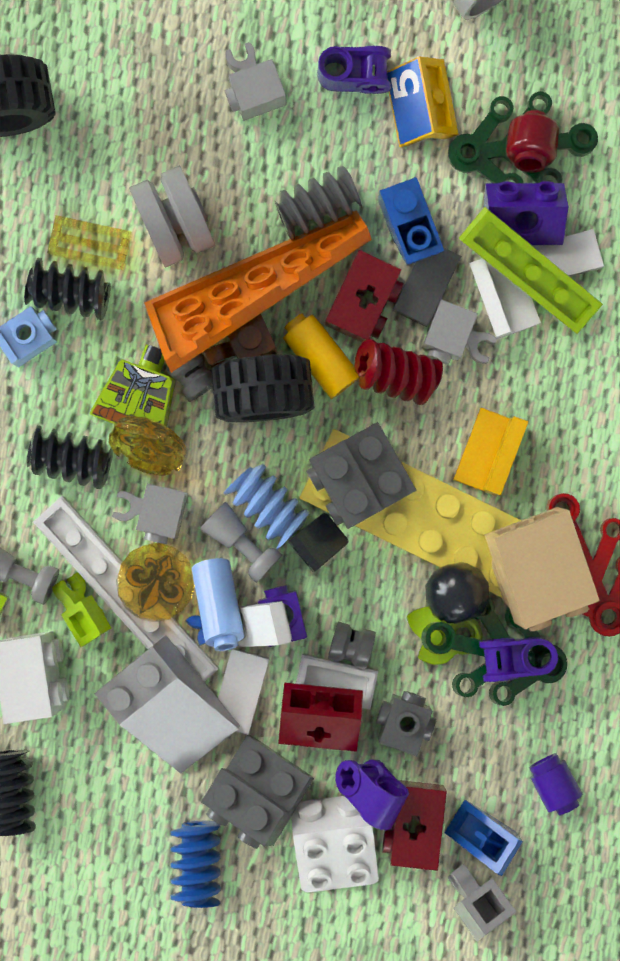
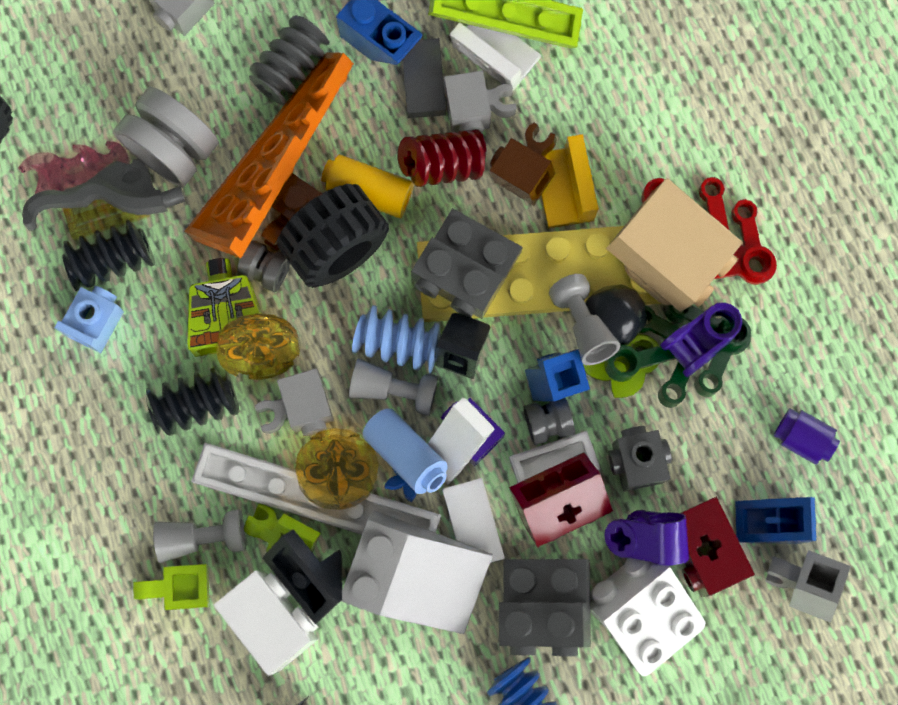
camera: 35 degrees left, 10 degrees down
(81, 666) = (310, 582): none -> black slope
(94, 211) = (94, 177): none -> dark grey piece
(371, 275) = (373, 95): dark red brick -> none
(381, 611) = (557, 376): none -> blue brick
(425, 601) = (591, 334): none -> light grey piece
(460, 419) = (524, 168): none -> reddish brown brick

